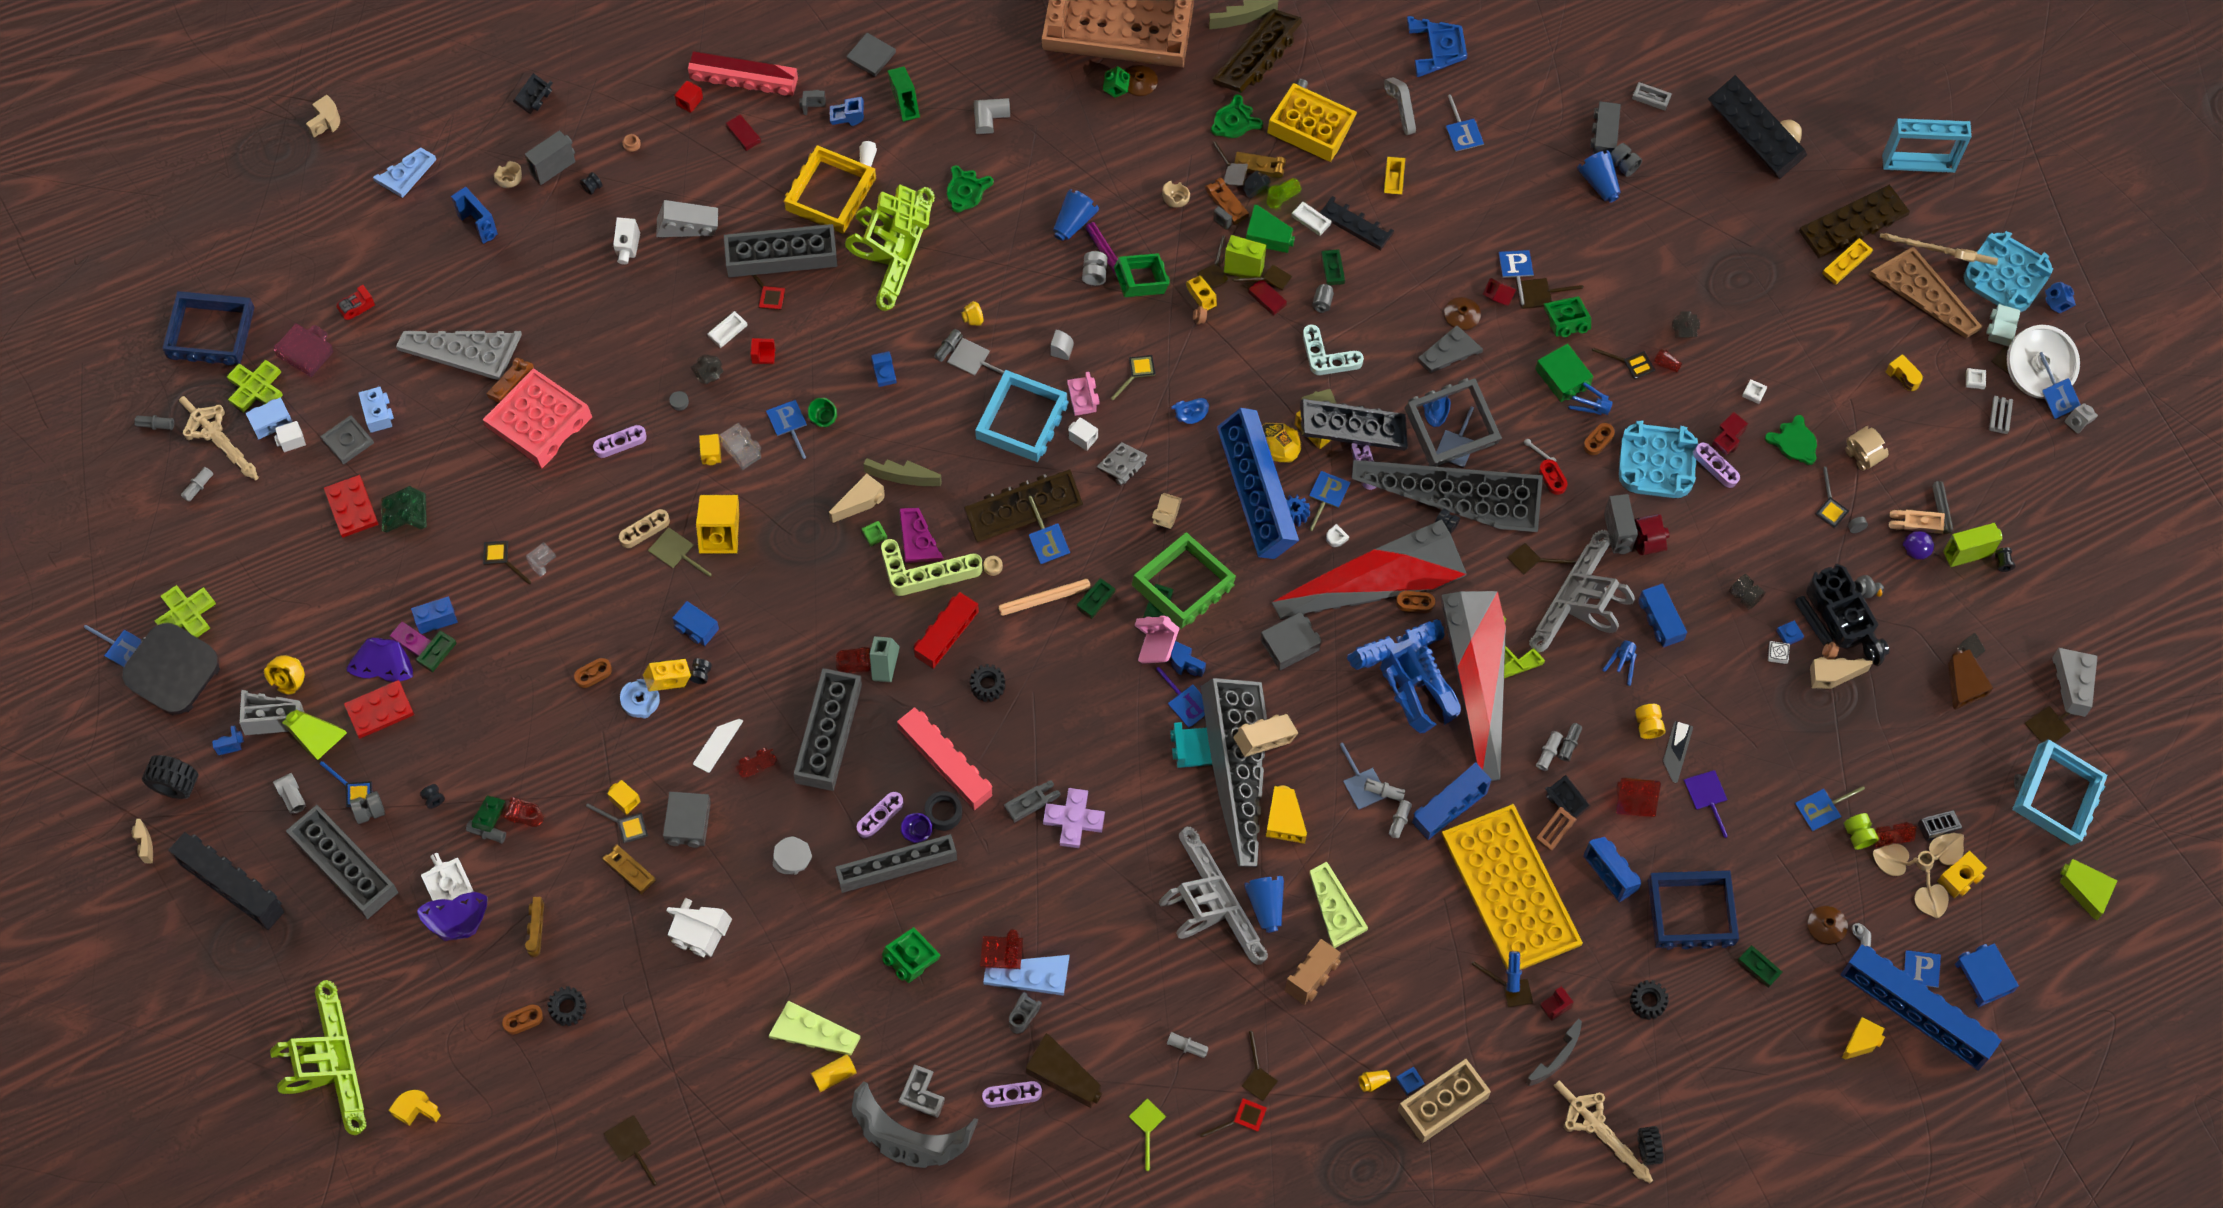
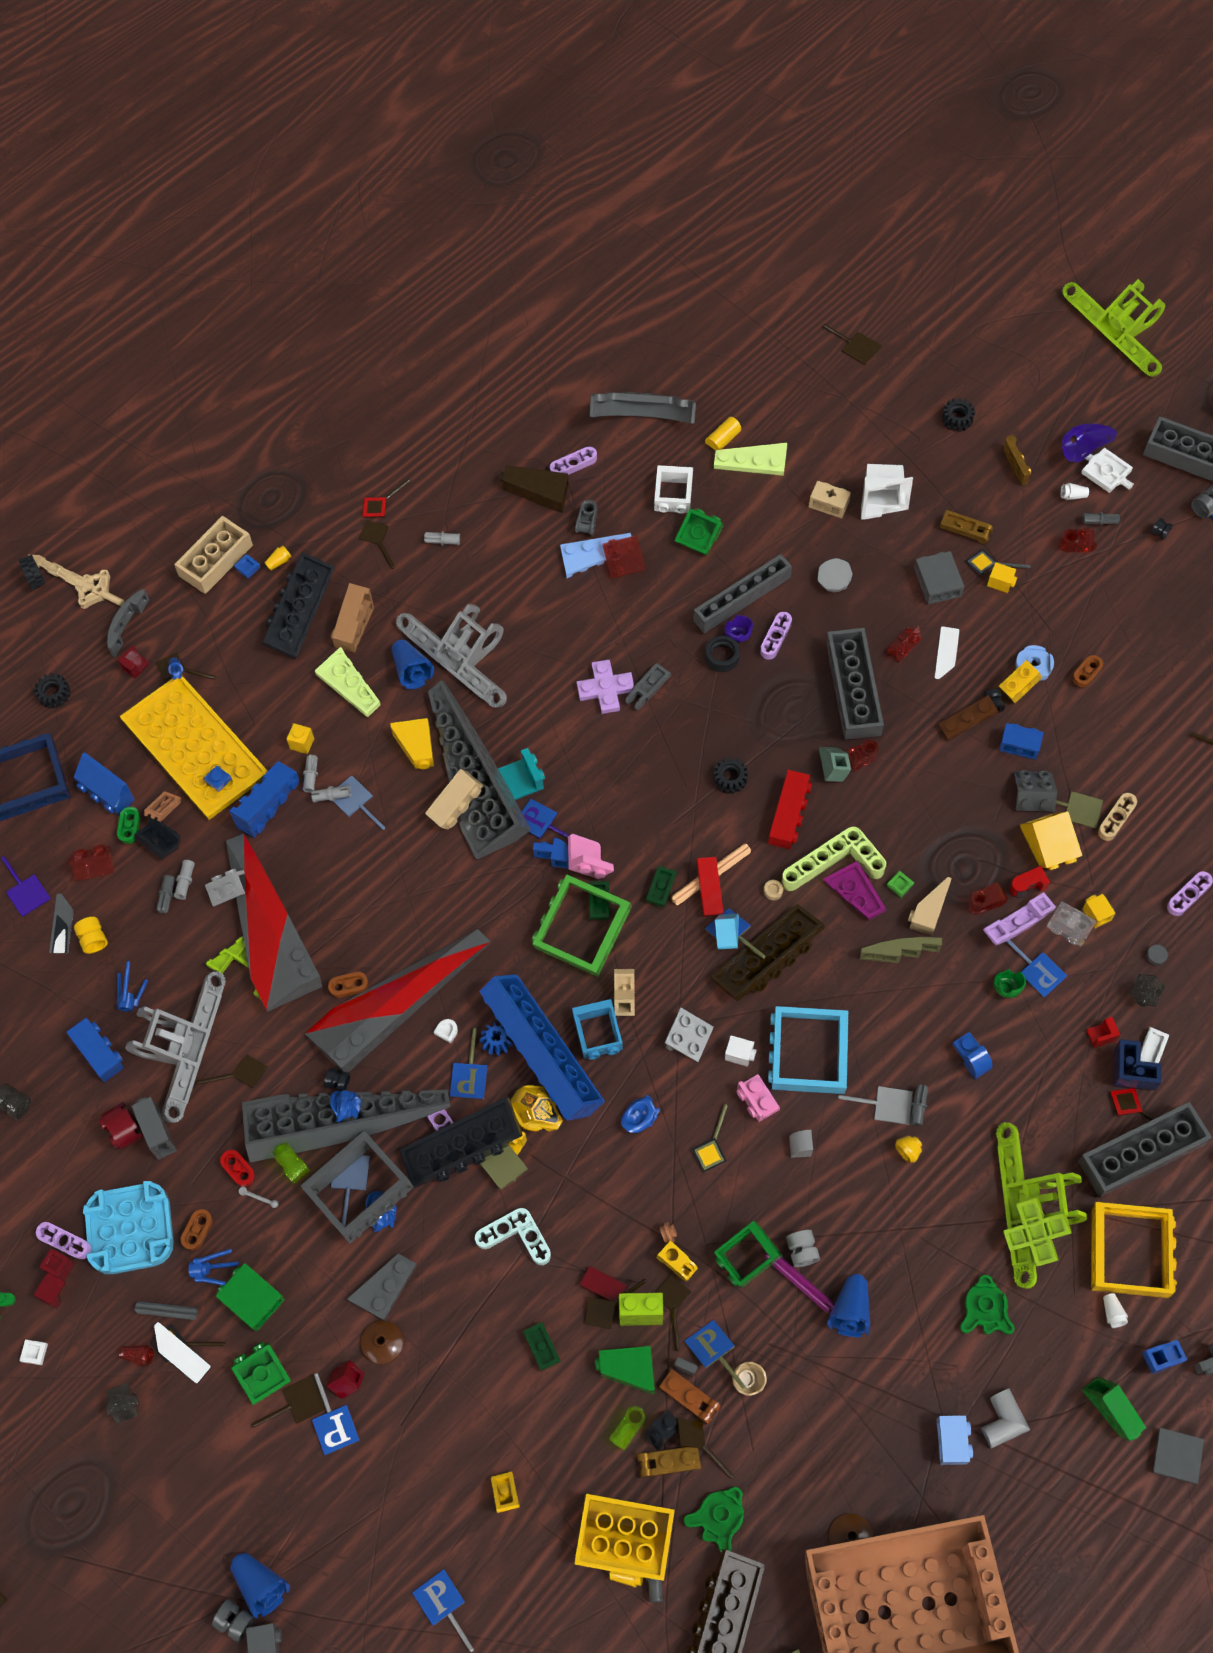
camera: 165 degrees right, 0 degrees up
(410, 1104) = (1034, 316): yellow brick -> none
(488, 813) = (1106, 528): dark green plate -> none
(498, 870) = (1072, 491): none -> white cone
(523, 1020) = (986, 397): dark orange plate -> none
(539, 558) = (1195, 751): clear panel -> none
(706, 575) = (1035, 791): none -> dark grey bracket
(734, 660) = (968, 718): none -> reddish brown plate
(749, 938) = (829, 499): none -> tan brick
(756, 312) = (1132, 1071): none -> dark blue brick
(759, 495) = (1028, 881): none -> red leg
(786, 465) = (1020, 920): none -> lavender slope
(801, 491) = (987, 899): none -> clear red piece
(911, 1036) = (675, 475): none -> white window
(917, 1097) = (648, 434): light grey brick -> none
(945, 758) = (740, 696): coral brick -> none
(1036, 108) = (953, 1440): none -> light blue brick
(1051, 537) = (727, 931): none -> medium azure slope
(1051, 580) = (709, 886): none -> red tile
(1116, 82) = (876, 1514): green brick -> none
(1147, 1117) = (457, 481): lime piece -> none
(1196, 228) = (710, 1345): none -> blue piece
(1201, 507) = (591, 1011): none -> dark azure window
(1290, 641) = (459, 904): dark grey brick -> none
(1311, 218) = (586, 1407): white tile -> none
(1323, 298) = (540, 1300): dark grey brick -> none
(1356, 224) = (533, 1417): black hinge -> none
(1367, 1010) = (297, 605): none -> black plate
(1400, 91) = (527, 1607): light grey beam -> none
(1401, 856) = (300, 738): none -> yellow brick
(1411, 665) = (330, 896): blue piece -> none
(1445, 490) = (345, 1104): none -> blue hat
(1495, 837) = (217, 778): none -> blue plate
(1505, 460) = (292, 1165): none -> clear neon green piece
(1510, 723) = (226, 887): none -> light grey bracket
(1594, 825) = (128, 826): none -> green plate
(1631, 353) = (180, 1354): none -> white sticker
(1637, 387) = (166, 1310): none -> dark grey axle

